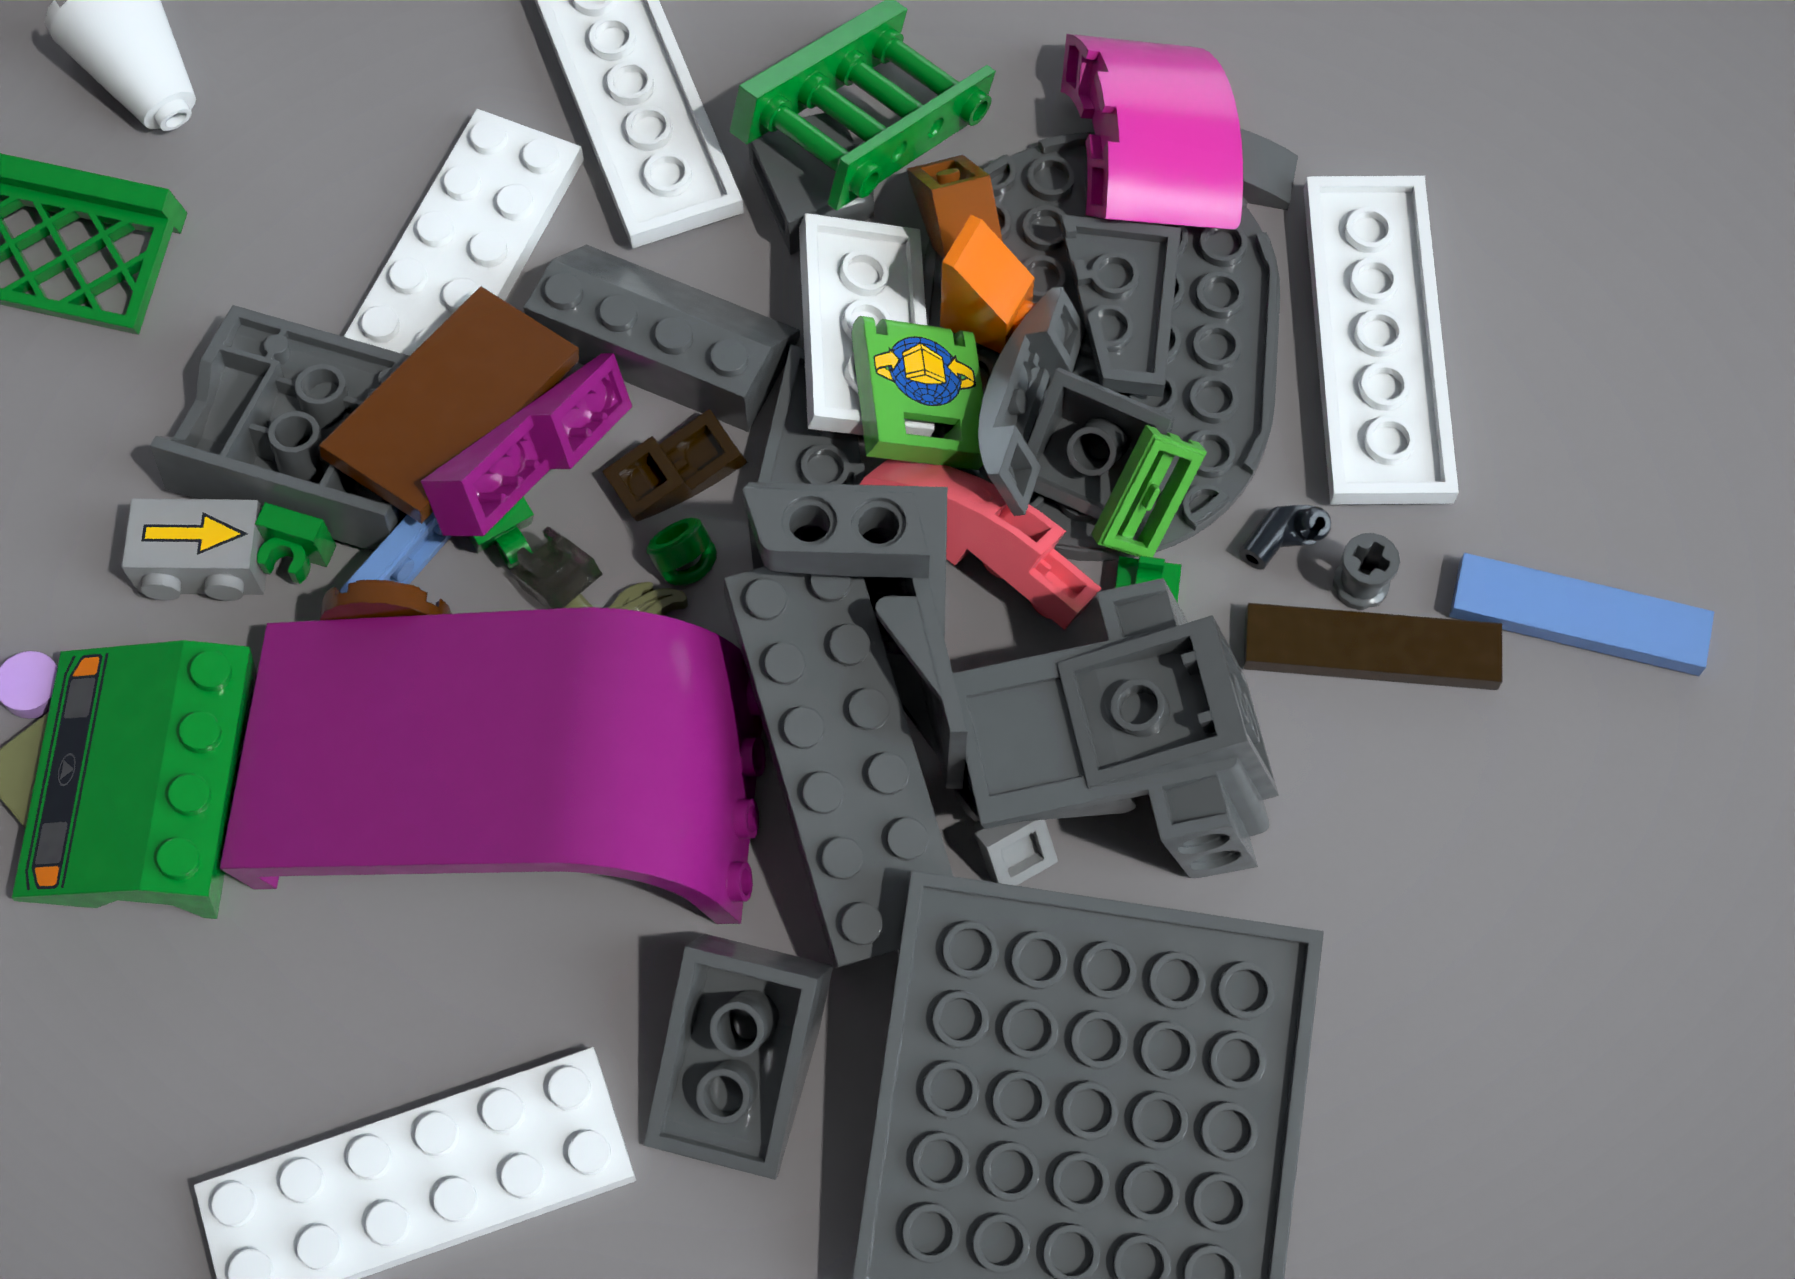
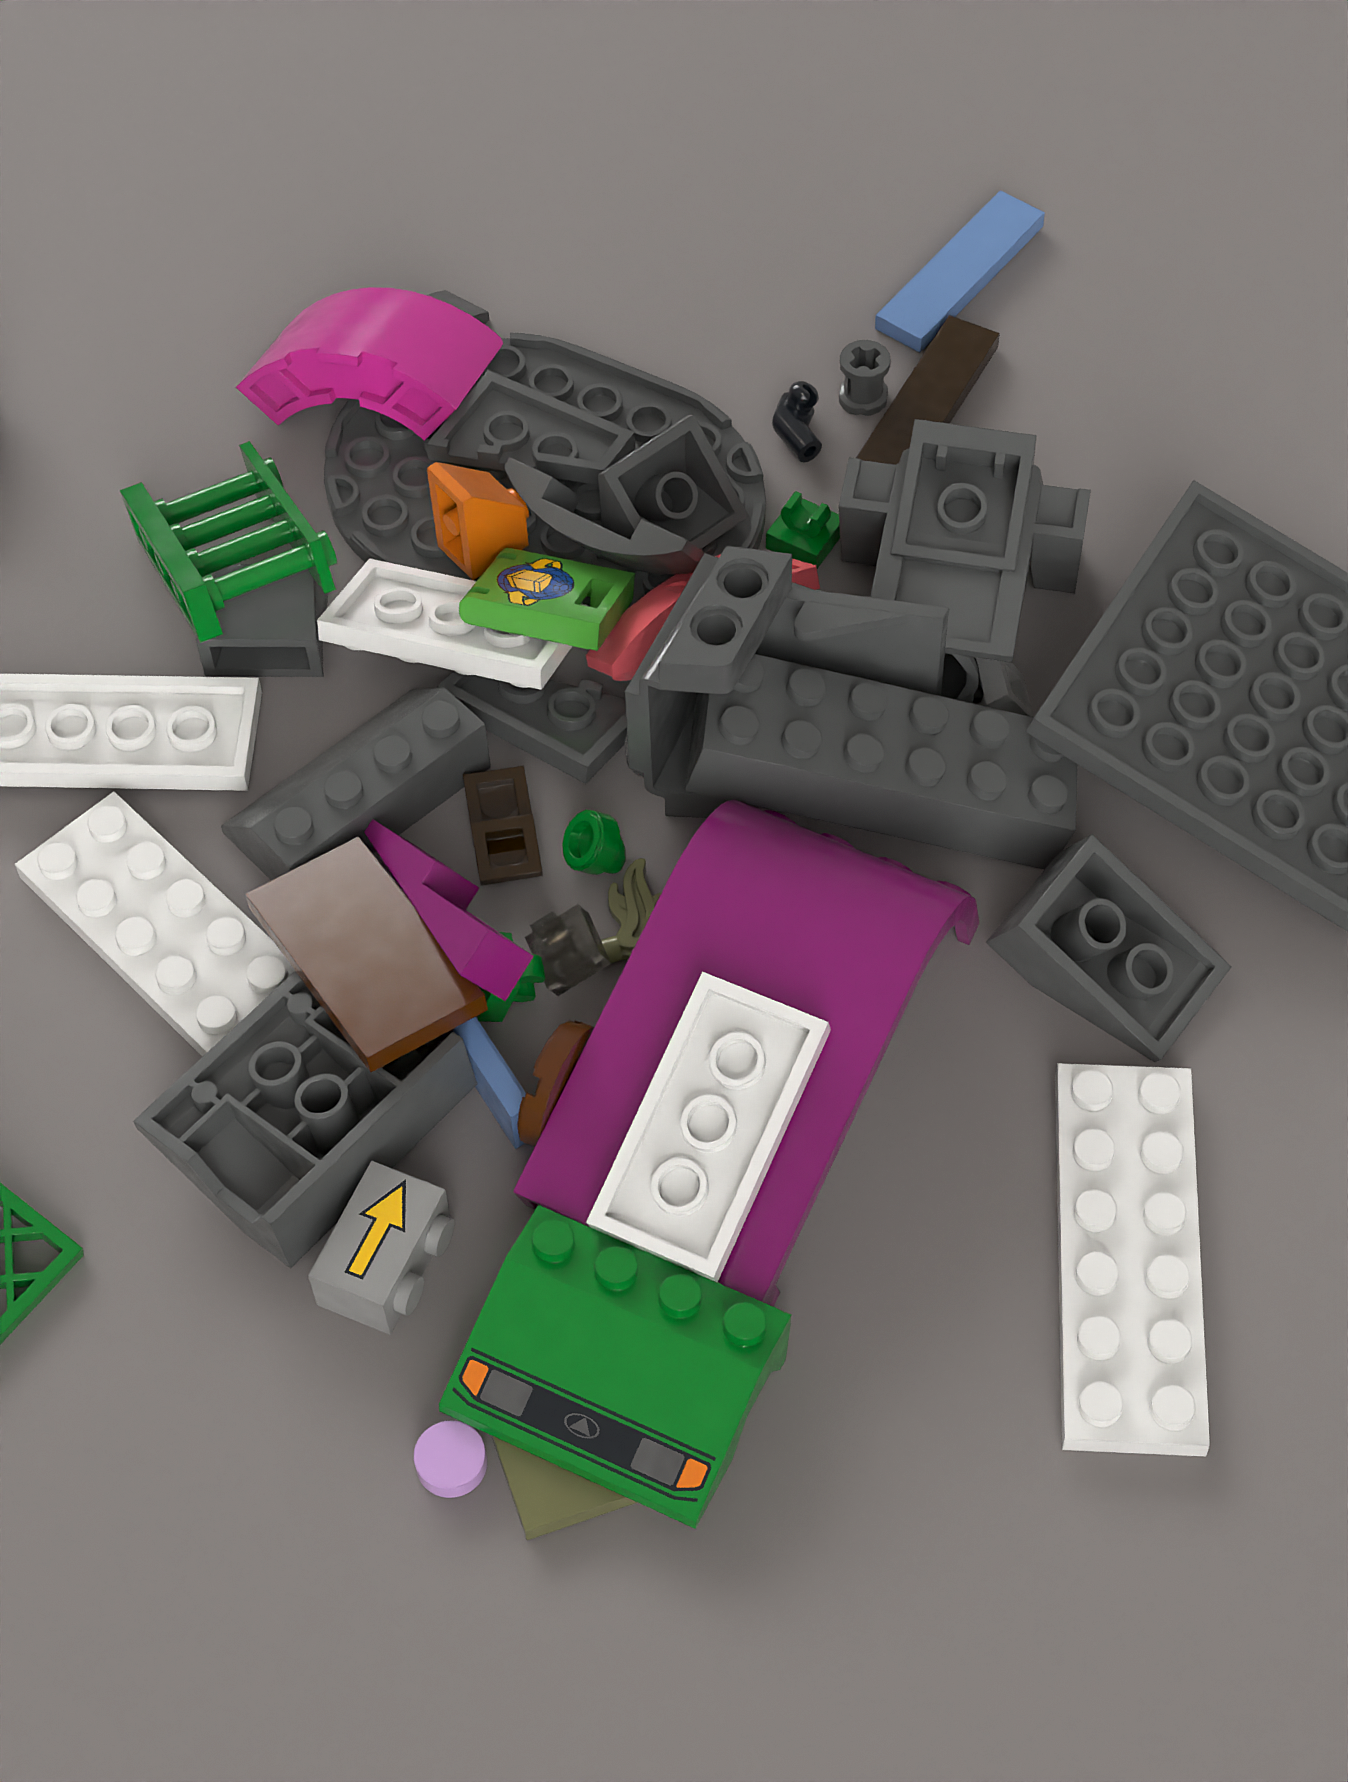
camera: 65 degrees left, 10 degrees down
(293, 536) = (422, 1150): green tile -> none
(347, 748) = (709, 1126): none -> white plate
(948, 195) = (375, 512): dark orange slope -> none
(1139, 489) = (736, 472): bright green tile -> none
(1379, 341) = (653, 297): white plate -> none

